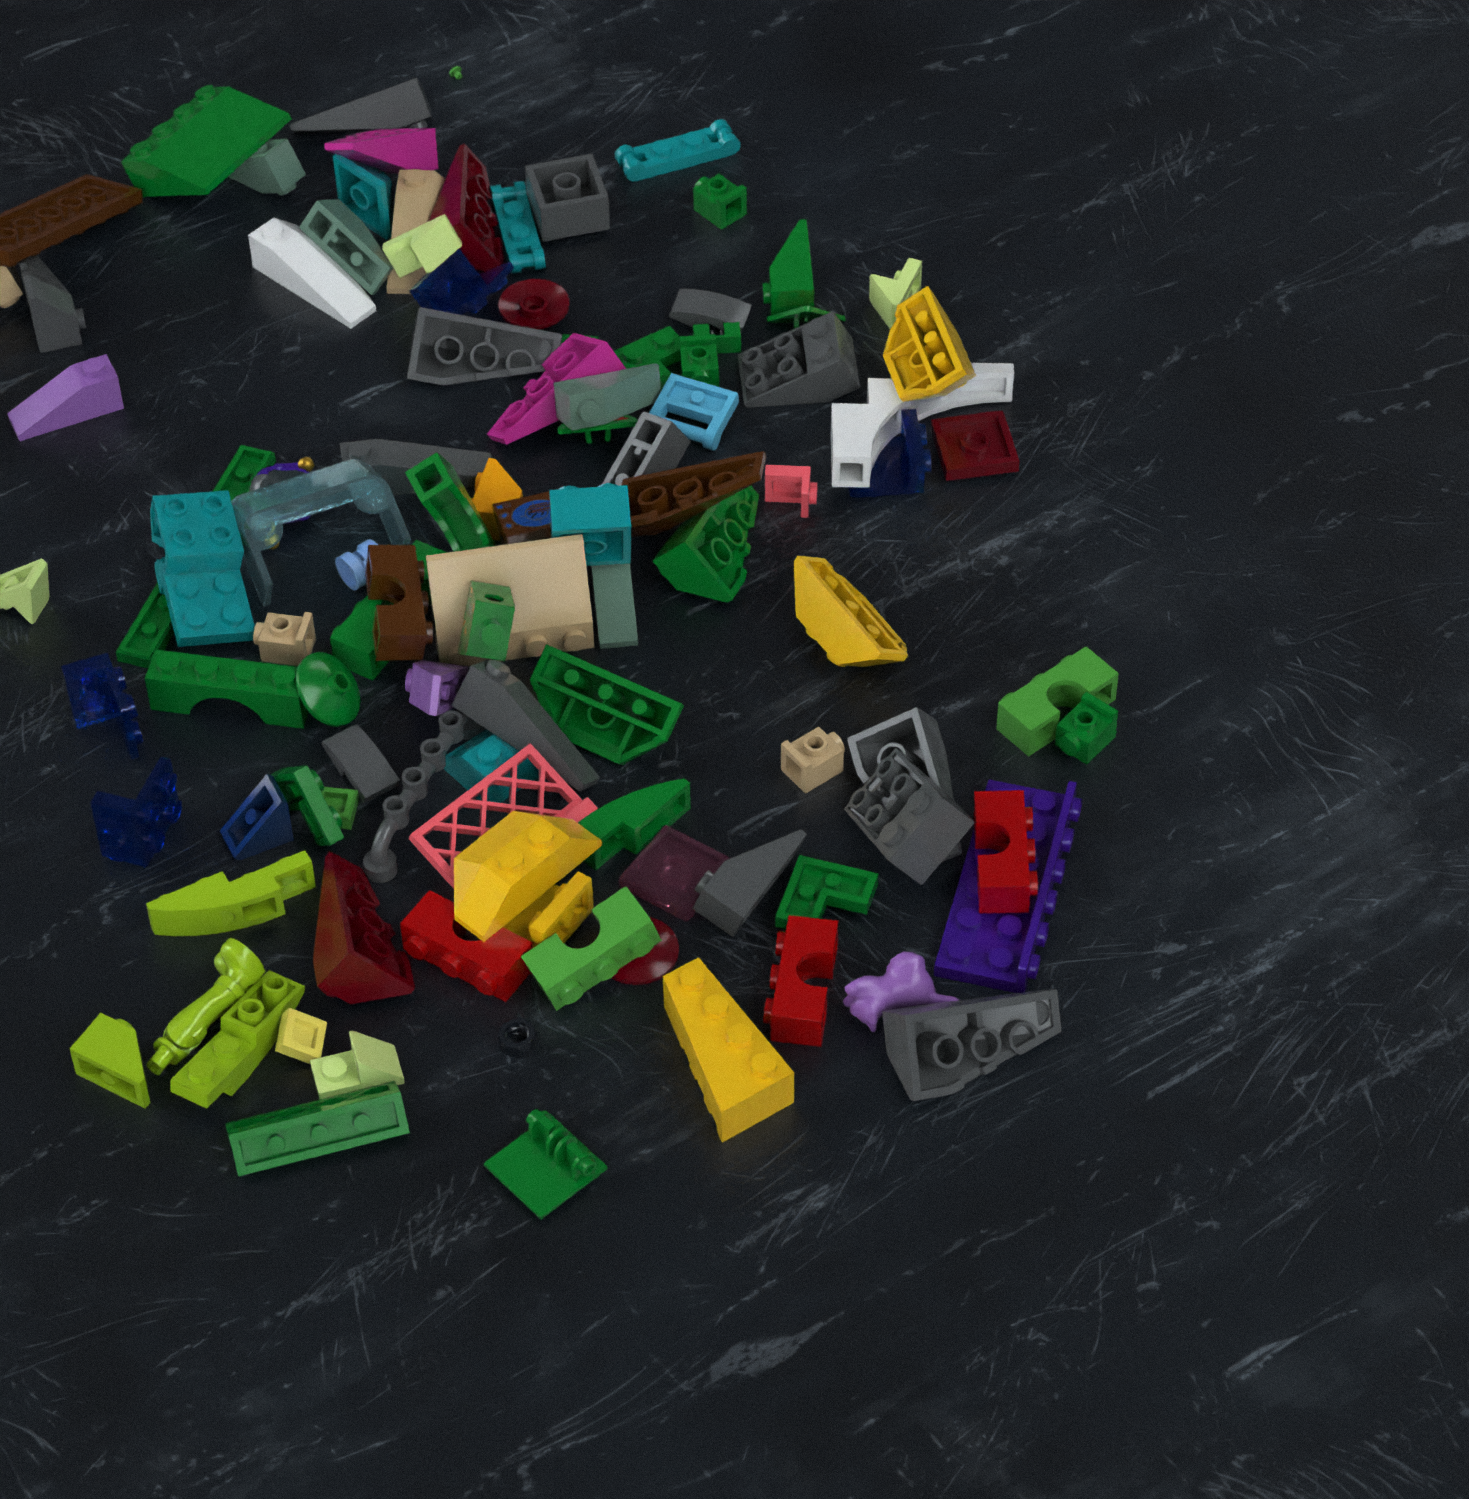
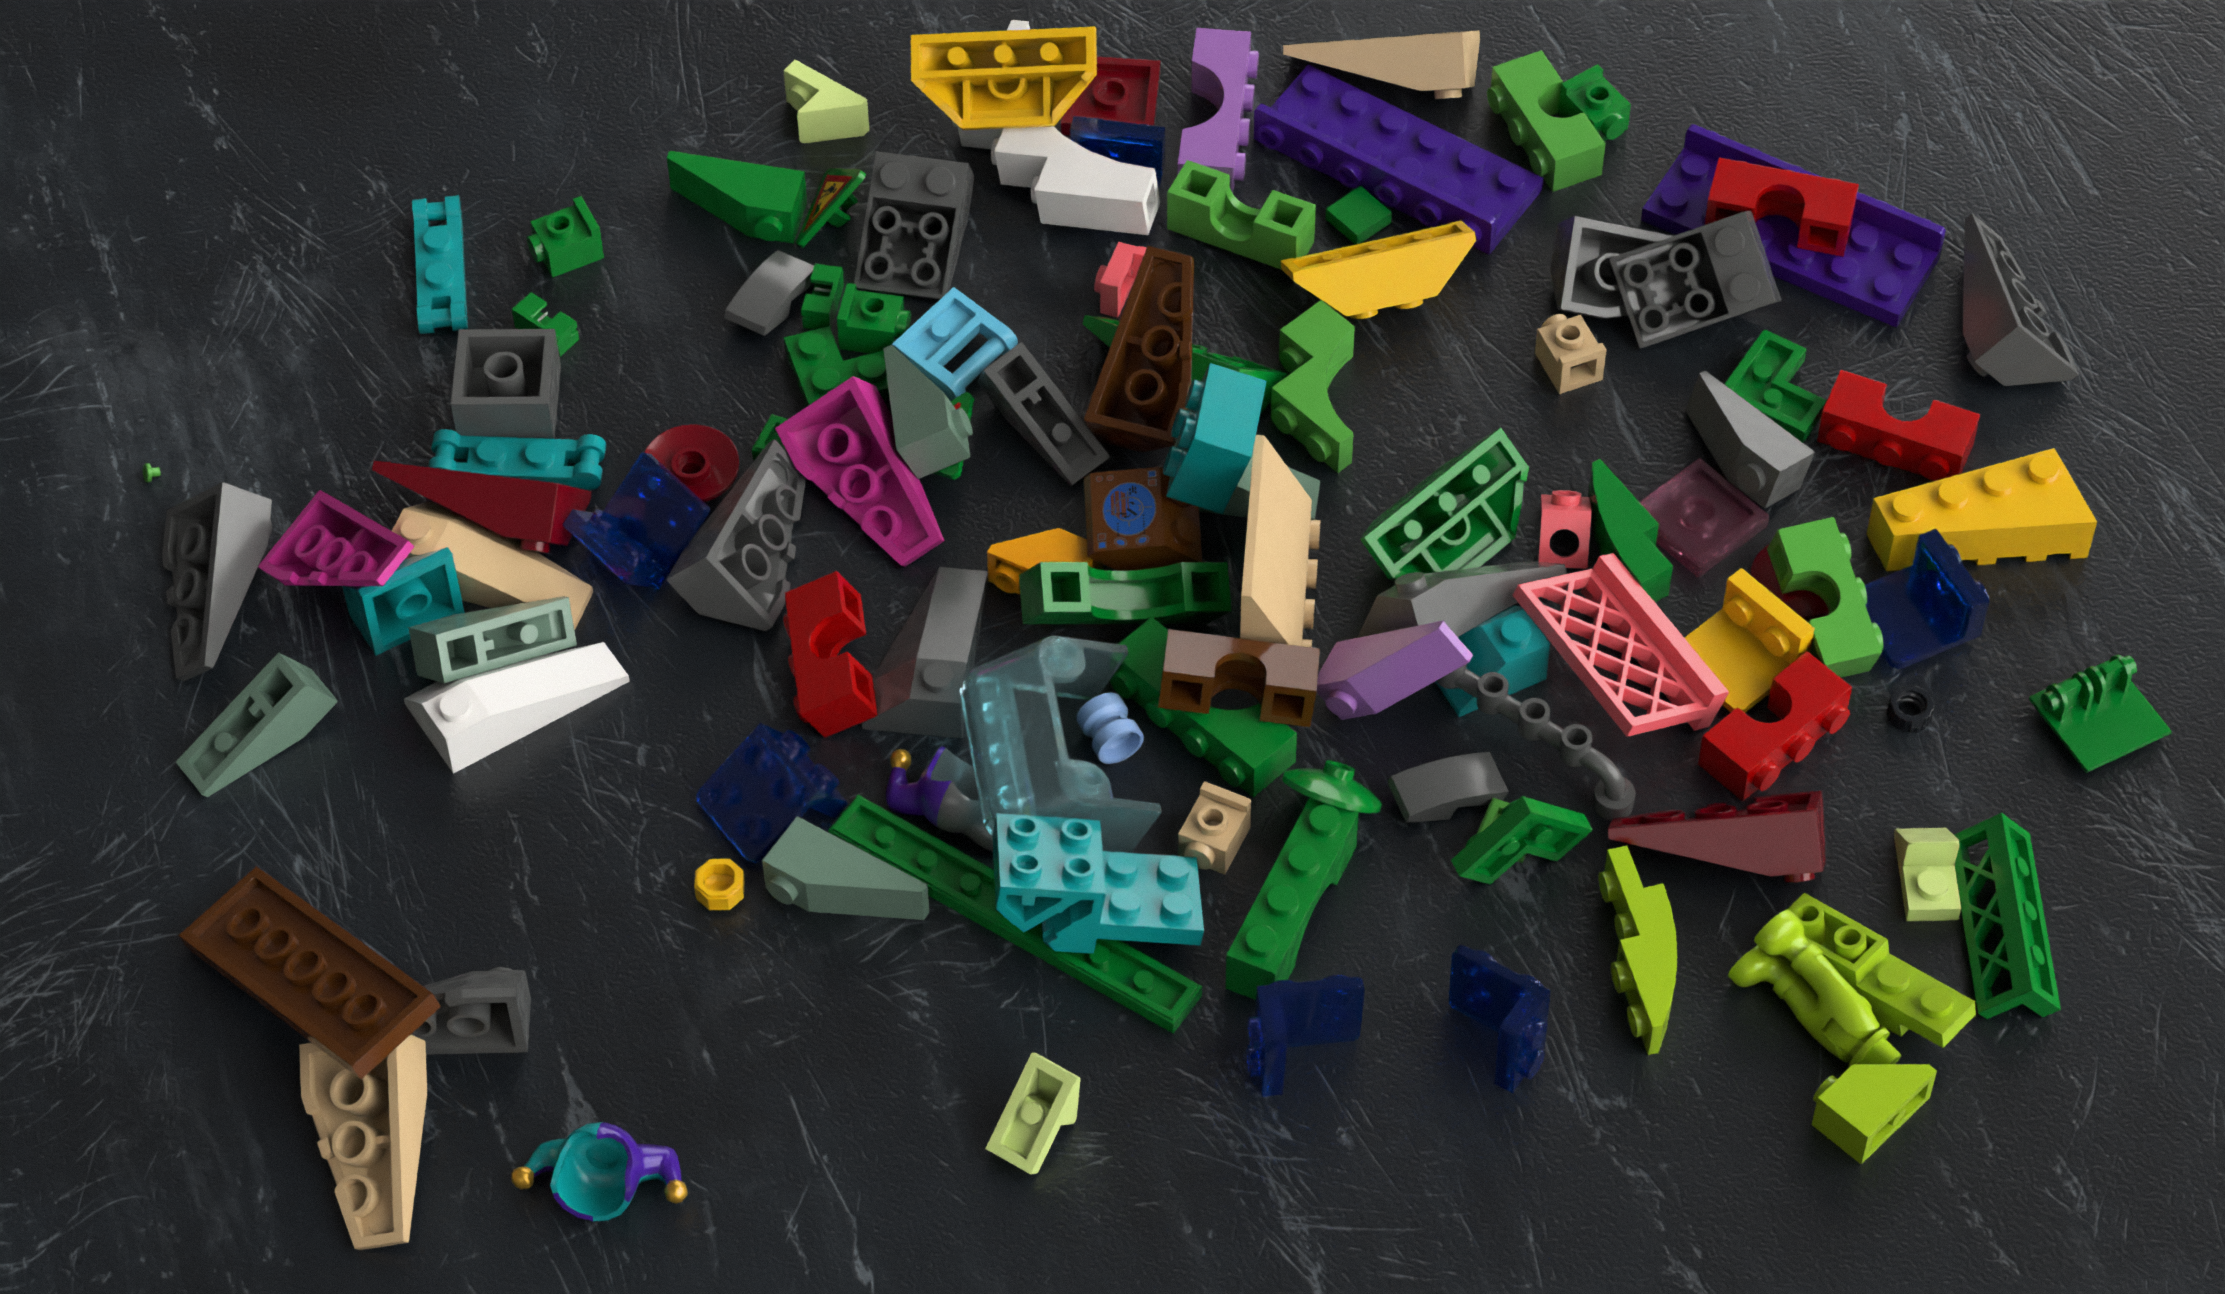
camera: 75 degrees left, 5 degrees up
(71, 397) = (666, 1018): medium lavender slope -> none
(183, 402) = (719, 884): none -> yellow tile
(202, 143) = (215, 763): green slope -> none
(202, 445) = (838, 878): none -> sand green slope
(259, 822) = (1511, 901): dark blue slope -> none
(269, 408) = (765, 789): none -> clear blue bracket
(300, 1036) = (1876, 910): light yellow plate -> none
(405, 397) = (830, 688): none -> red arch
(422, 246) = (563, 535): yellowish green slope -> none
(487, 622) = (1335, 577): green torso -> none
(515, 867) = (1709, 635): yellow wedge -> none
(617, 1021) = (1927, 604): none -> clear blue bracket
(633, 777) = (1565, 511): none -> coral bracket
(641, 211) = (528, 316): none -> green piece
(704, 610) = (1313, 352): none -> bright green arch
(870, 533) = (1207, 210): none -> bright green arch
(902, 986) = (1931, 351): medium lavender animal -> none
(915, 612) = (1358, 215): none -> green tile
(940, 512) = (1220, 74): none -> medium lavender arch
(982, 623) = (1396, 157): none -> dark purple bracket
(1085, 603) = (1417, 62): none -> tan wedge

